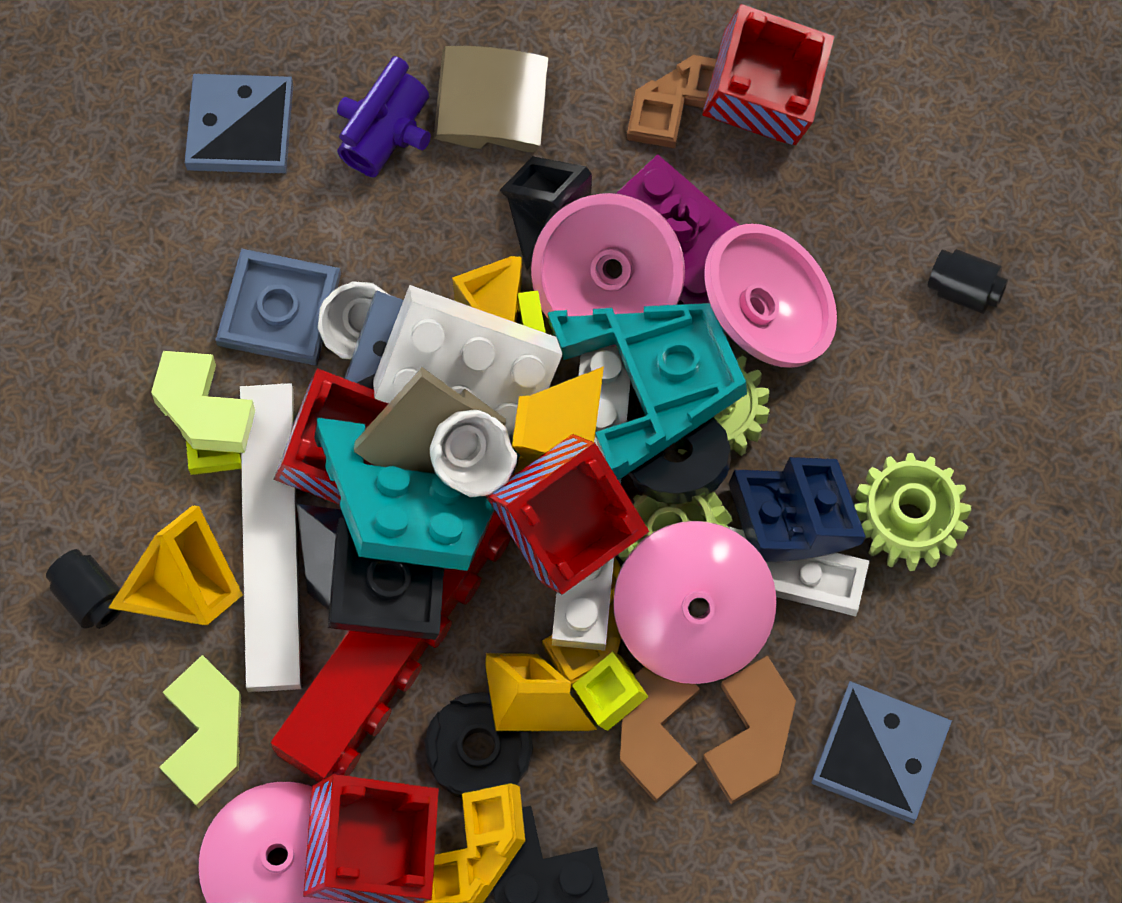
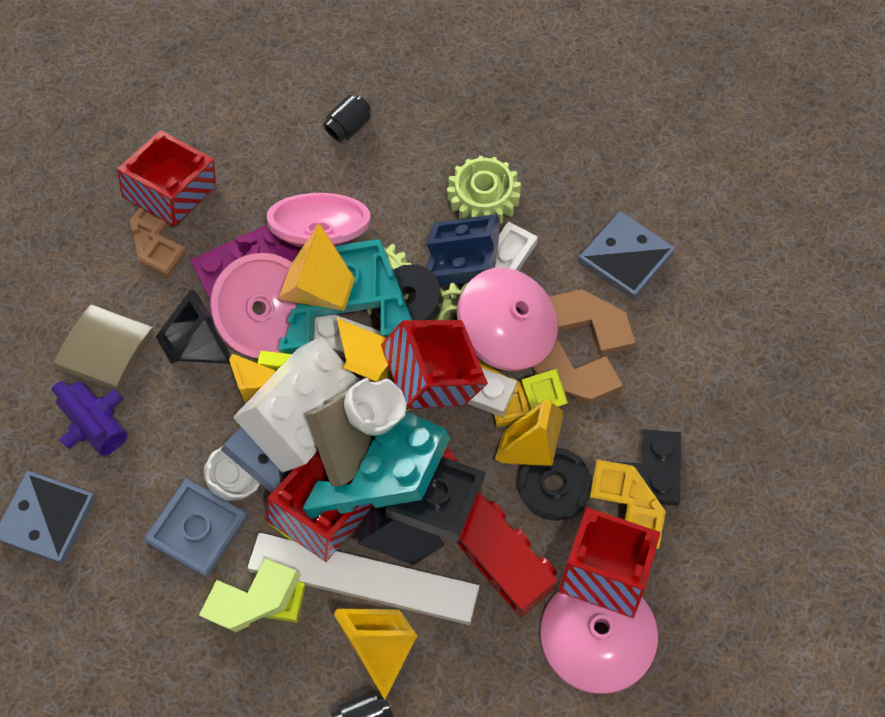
camera: 70 degrees left, 5 degrees down
(213, 751) = (508, 659): yellowish green tile -> none
(660, 322) = (318, 275): none -> yellow slope

